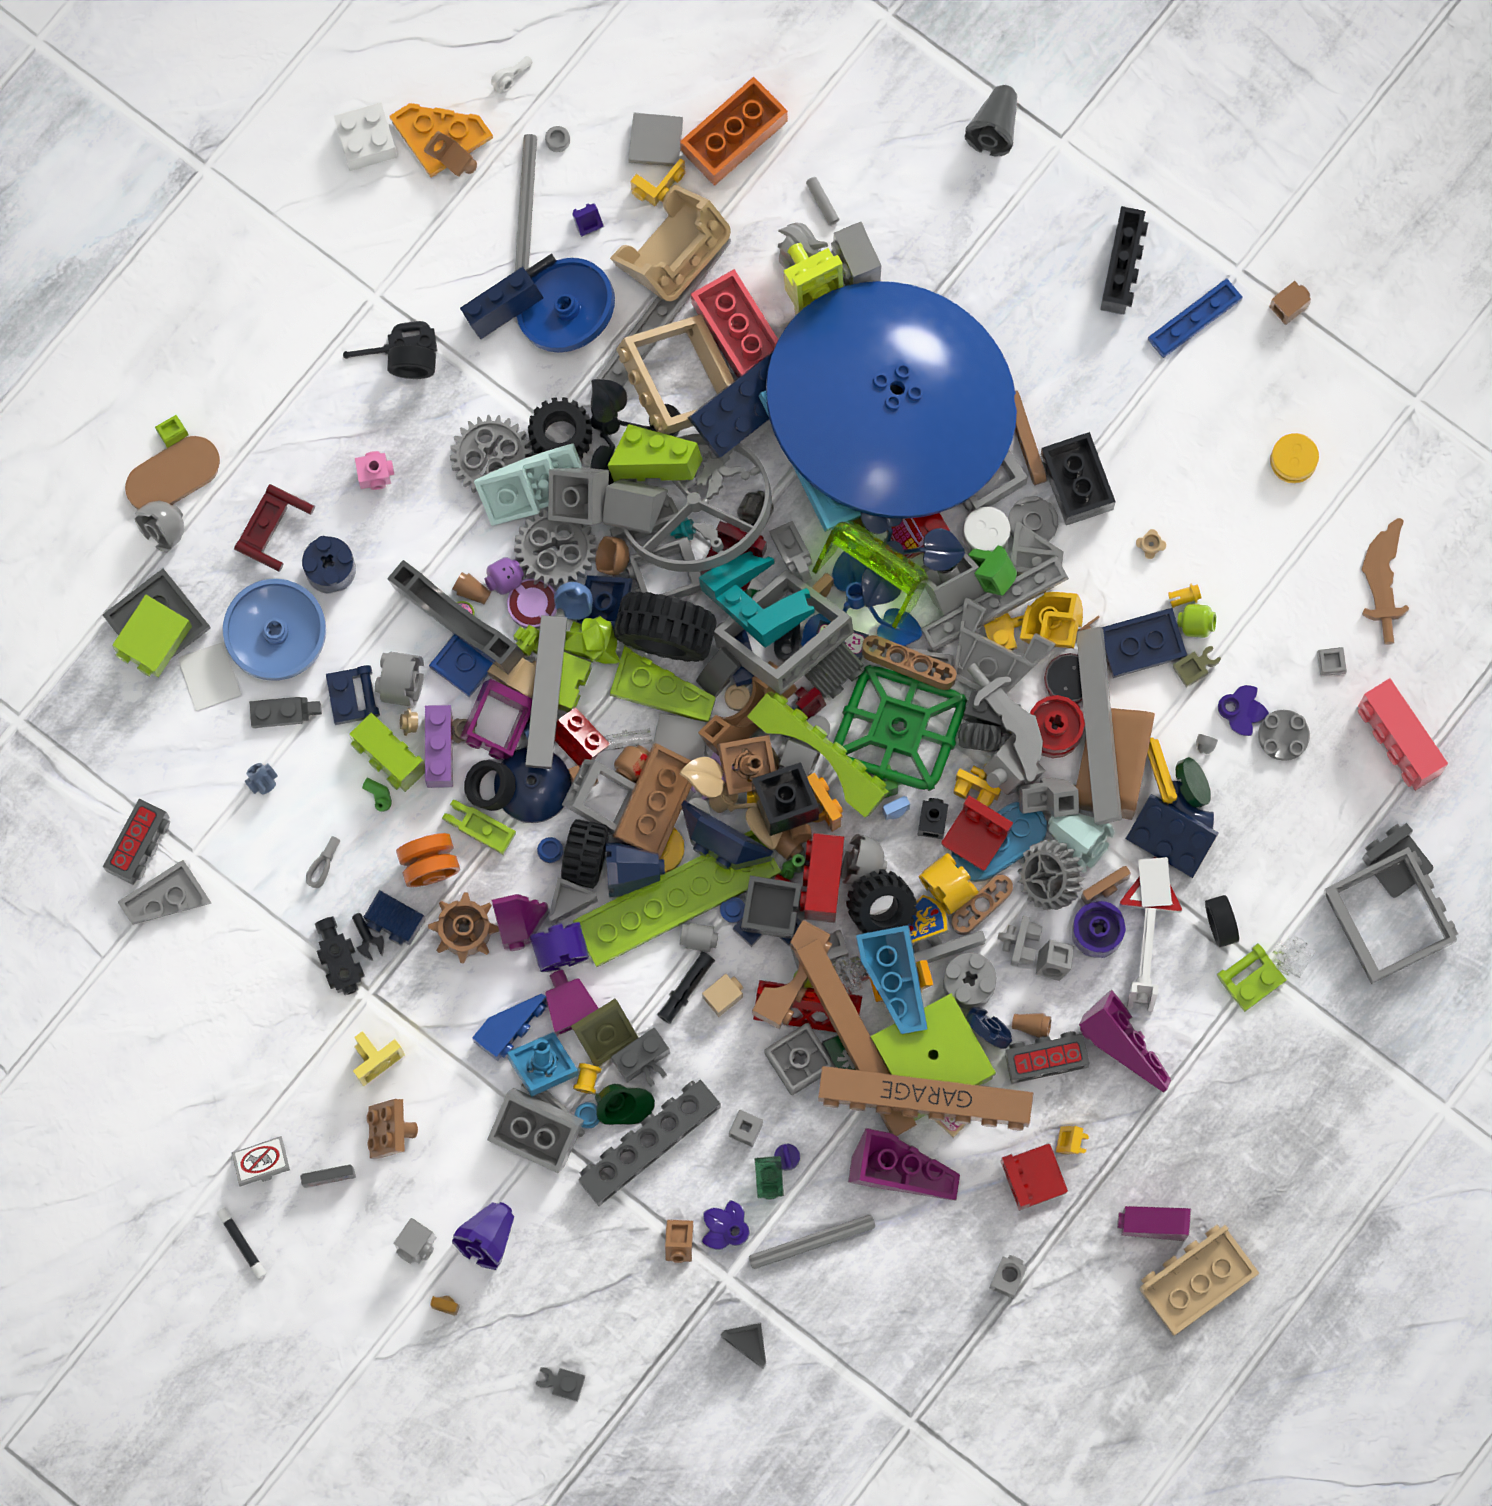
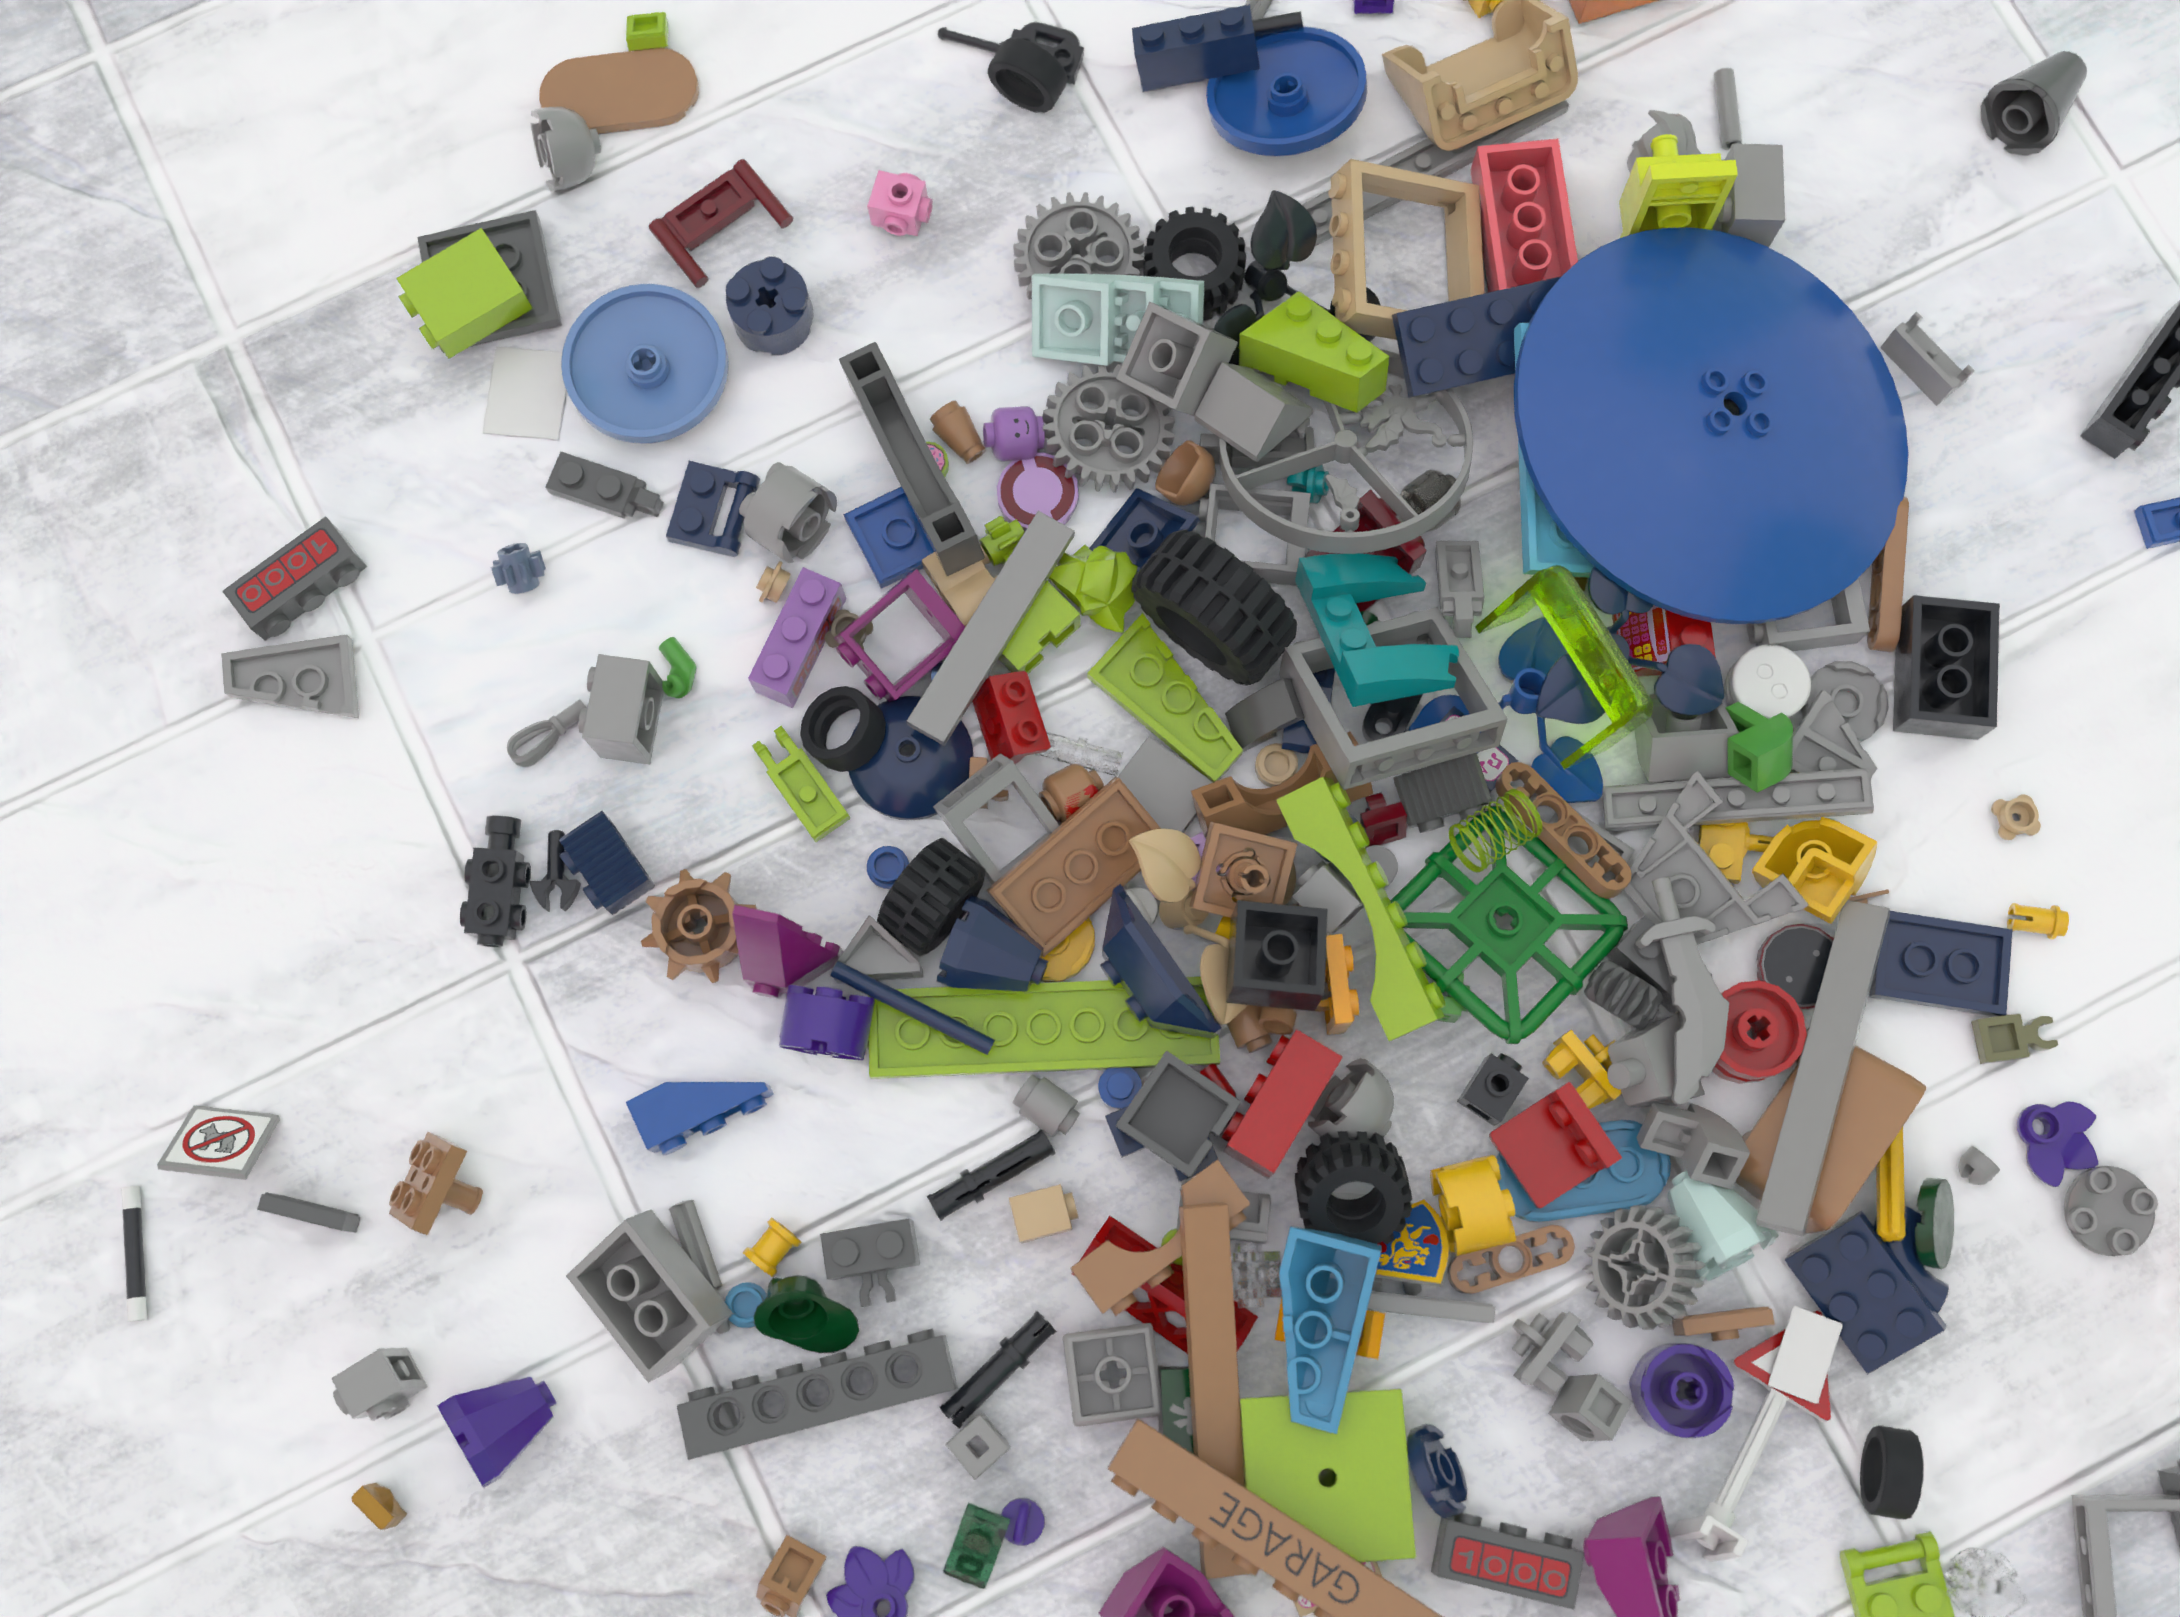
camera: 25 degrees right, 0 degrees up
(364, 831) = (622, 708): none -> light grey brick
(375, 1061) = (465, 1060): light yellow bracket -> none
(387, 753) = (717, 613): lime wedge -> none
(428, 860) = (694, 798): orange wheel -> none
(539, 1057) = (713, 1177): dark azure plate -> none
(568, 1002) = (801, 1116): magenta torso -> none
(574, 600) = (1099, 512): medium blue hair -> none
(600, 917) = (912, 1007): none -> dark blue bar
(604, 1032) = (831, 1189): olive plate -> none
(737, 1085) = (1011, 1356): none -> black pin
(792, 866) = (1241, 1061): bright green arm -> none
(824, 585) = (1485, 655): medium nougat tile -> none
(863, 690) = (1517, 824): none -> lime piece
(896, 808) = (1442, 1046): light blue tile -> none
(975, 967) = (1458, 1357): light grey brick -> none
(996, 304) = (1924, 361): none -> light grey hinge
(1032, 1024) = (1508, 1493): medium nougat cone -> none
(1197, 620) = (2044, 968): lime head -> none

